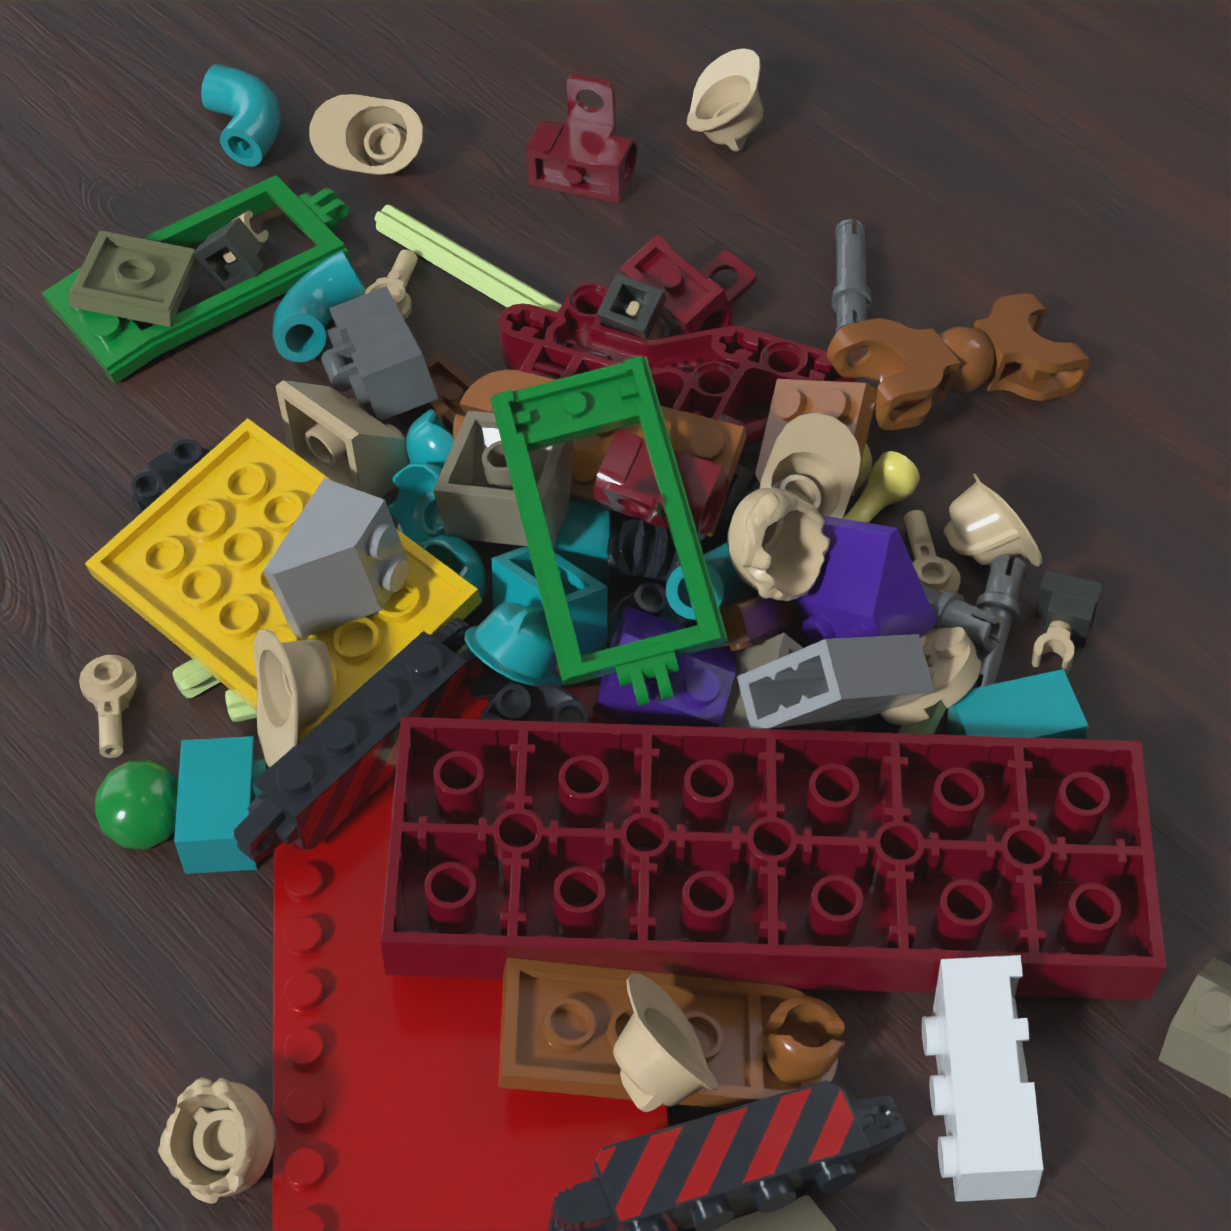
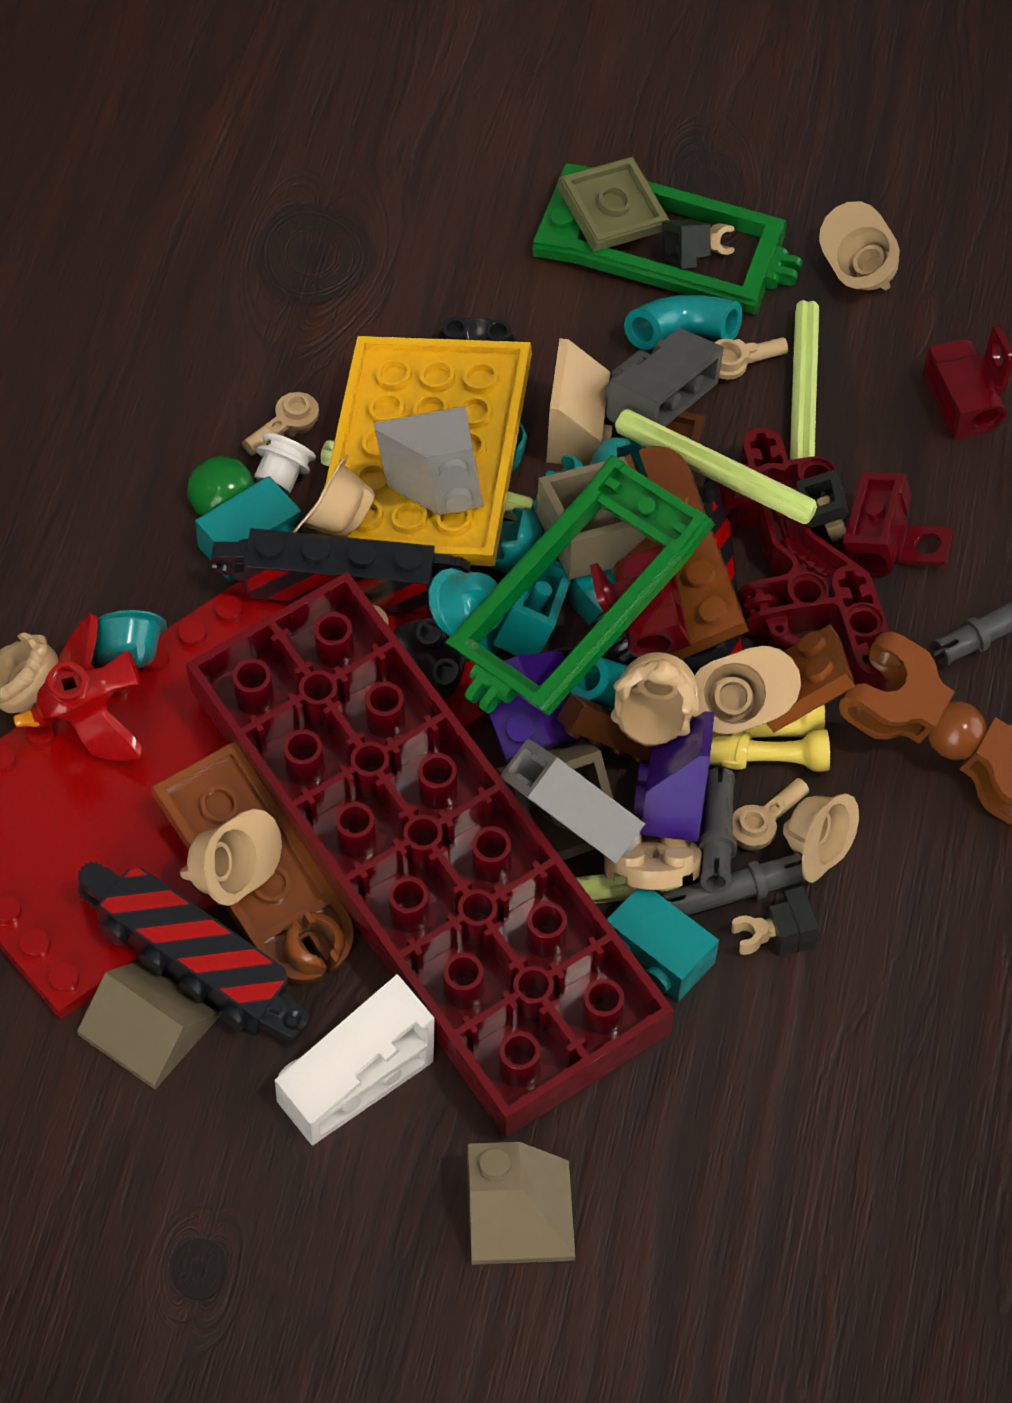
camera: 50 degrees right, 5 degrees up
(163, 722) = (282, 460): none -> white piece
(253, 110) = (830, 170): teal cylinder -> none
(278, 1001) = (129, 631): none -> teal piece
(319, 1076) = (80, 694): none -> red animal
(530, 357) = (718, 467): none -> yellowish green axle

